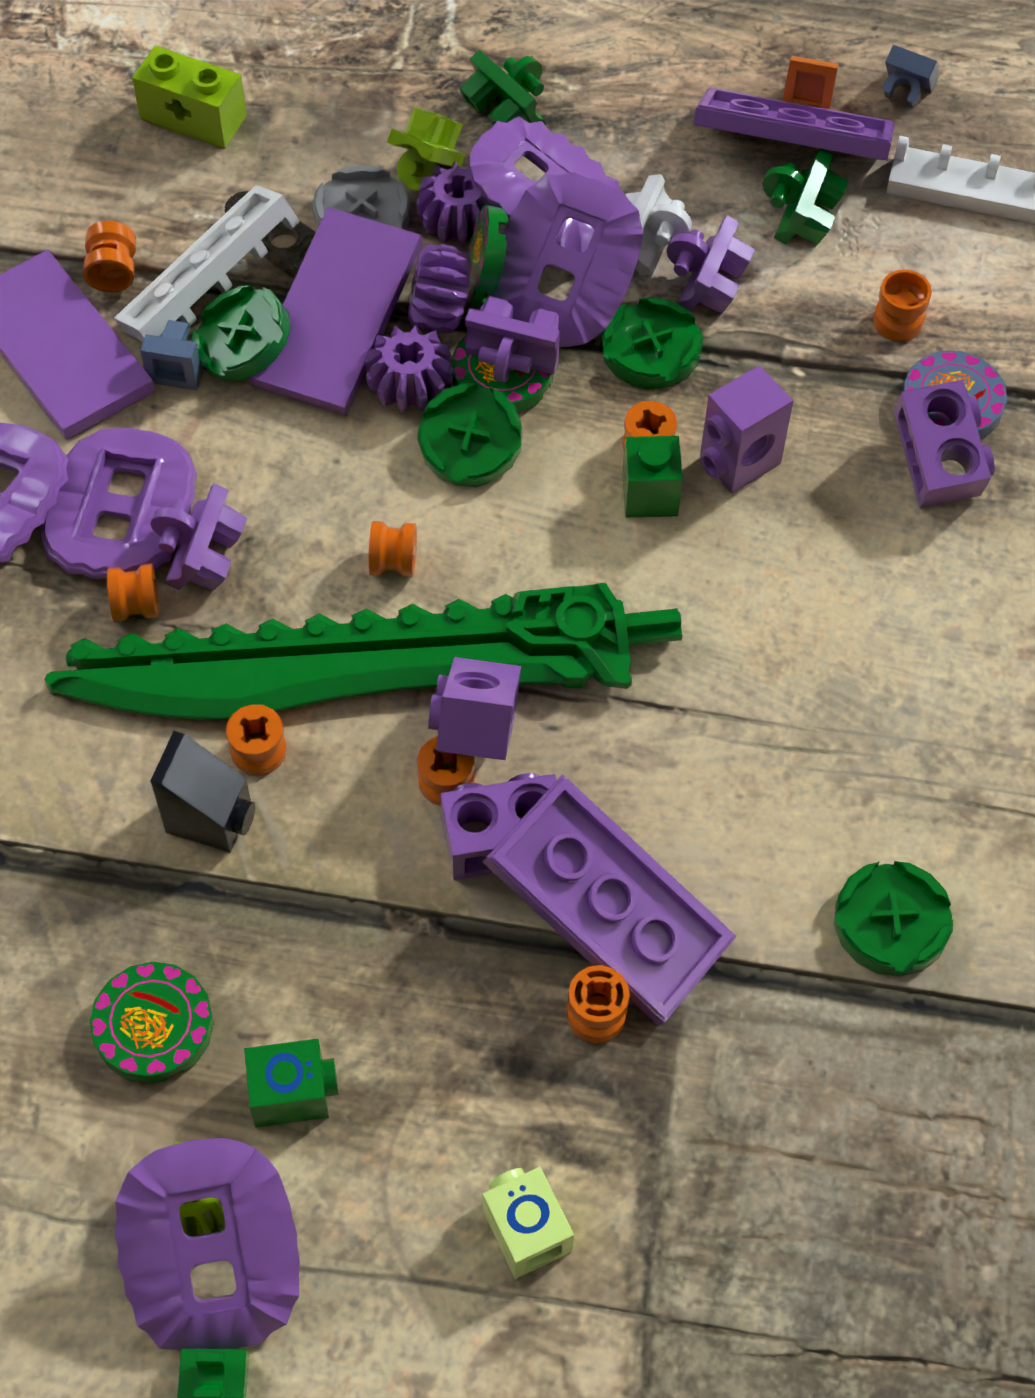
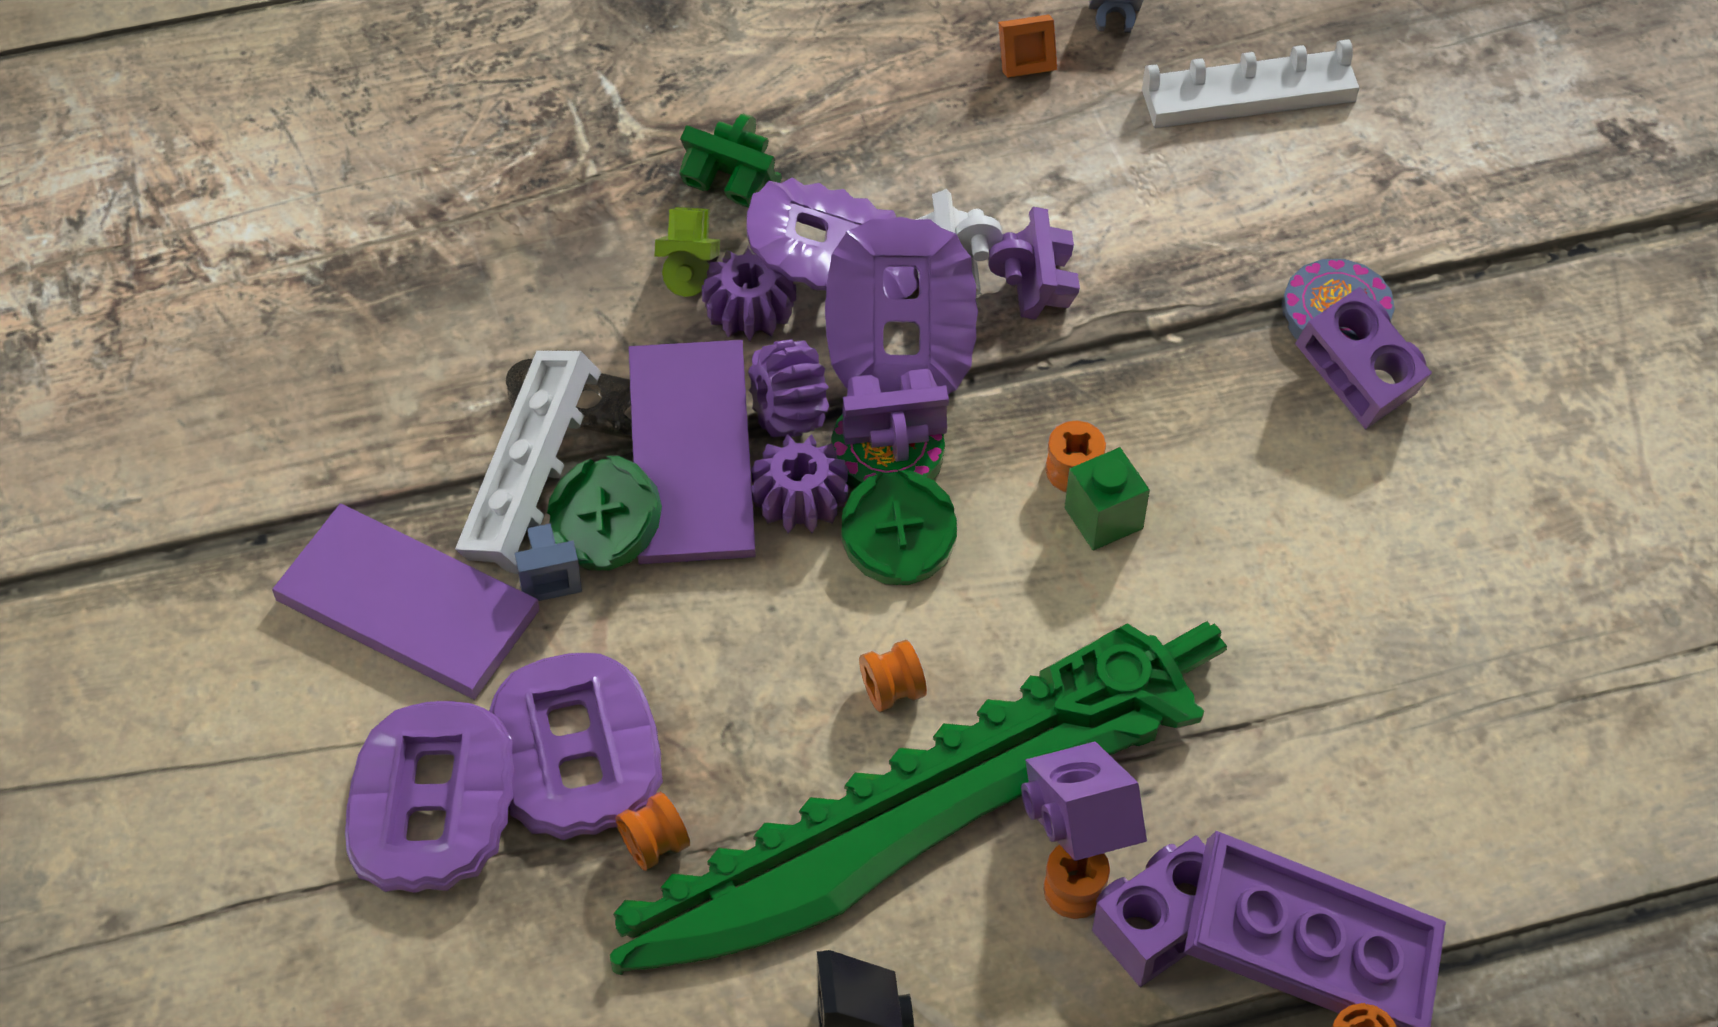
camera: 25 degrees left, 5 degrees down
(109, 256) = (416, 490): orange wheel -> none
(189, 96) = (401, 282): lime brick -> none
(193, 533) = (682, 746): medium lavender hips -> none
(256, 754) = (868, 942): orange wheel -> none
(365, 193) = (640, 318): light grey tile -> none
(486, 255) = (813, 318): green tile -> none
(652, 343) = (1021, 364): green tile -> none
(745, 429) = (1176, 415): medium lavender brick -> none
(795, 123) = (1039, 89): medium lavender tile -> none
(800, 192) = (1084, 159): green hips -> none
(893, 918) = (1574, 840): green tile -> none
(902, 305) = (1242, 234): orange wheel -> none

